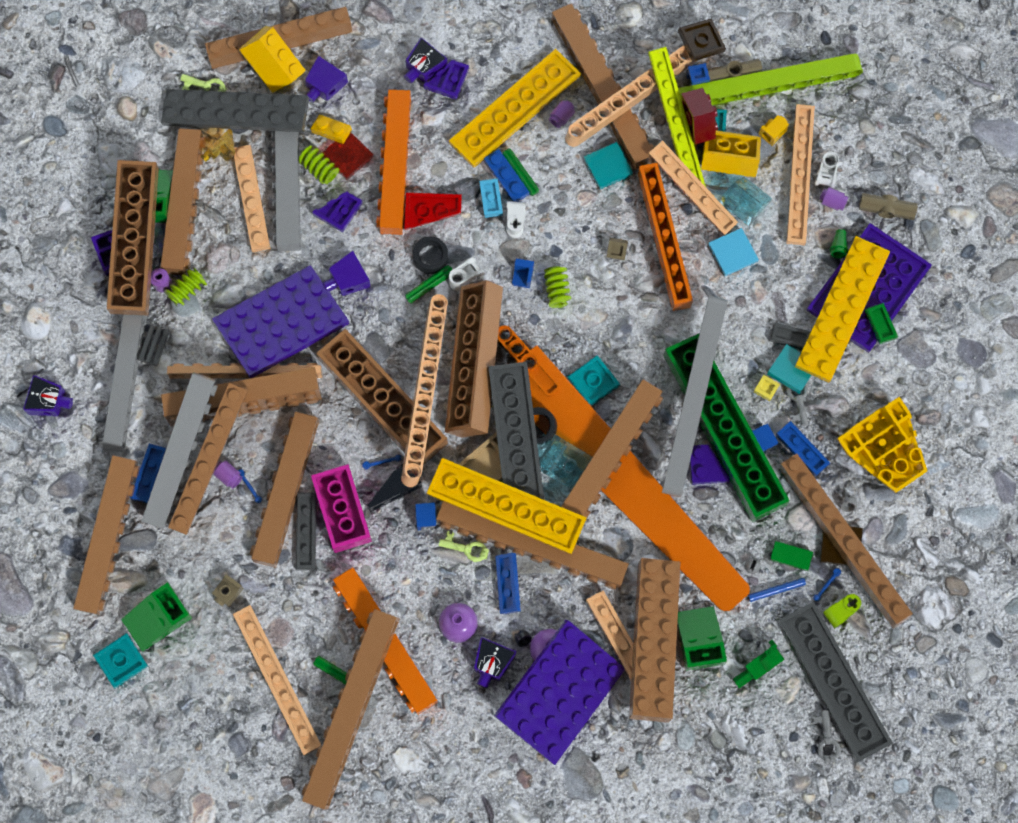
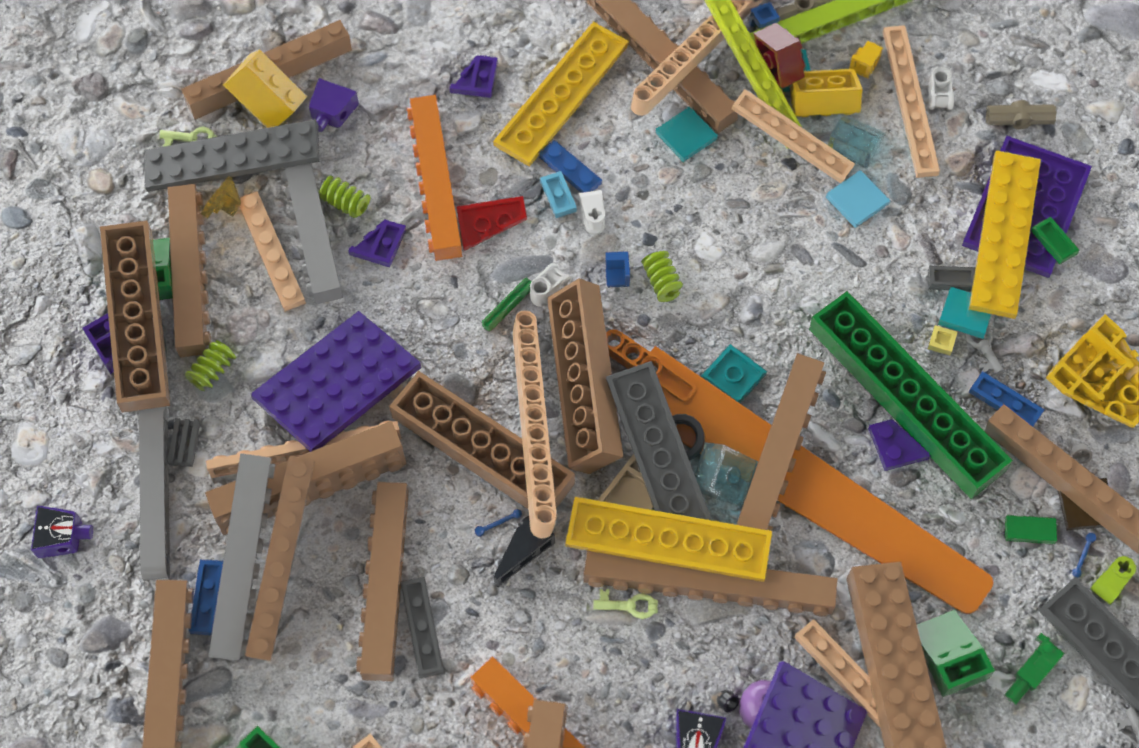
camera: 10 degrees left, 10 degrees down
(160, 280) = (177, 362): medium lavender brick -> none
(227, 474) = (307, 577): medium lavender brick -> none
(234, 591) = (339, 732): dark tan brick -> none
(258, 499) = (324, 574): blue hinge -> none
(331, 129) = (350, 155): yellow plate -> none
(341, 508) = (461, 587): dark pink brick -> none
(347, 276) = (407, 313): dark purple torso -> none
(348, 156) = (378, 180): clear red tile -> none
(424, 62) = (444, 64): torso -> none
(425, 515) = (568, 574): blue panel -> none
(430, 241) = (496, 256): black tyre -> none
(458, 622) = (641, 699): medium lavender cylinder -> none
(508, 583) = (692, 636): blue plate -> none
(521, 172) = (587, 159): green axle -> none
(562, 114) = (618, 88): medium lavender brick -> none
(617, 248) = (722, 220): dark tan plate -> none
(665, 237) = (775, 196): orange brick -> none
(694, 396) = (864, 364): light grey beam -> none
(748, 563) = (982, 549): light grey hinge -> none
(765, 437) = (960, 394): blue panel -> none
(776, 589) = (1025, 573): blue bar -> none
(833, 199) = (956, 118): medium lavender brick -> none
(839, 244) = (978, 167): green cone -> none

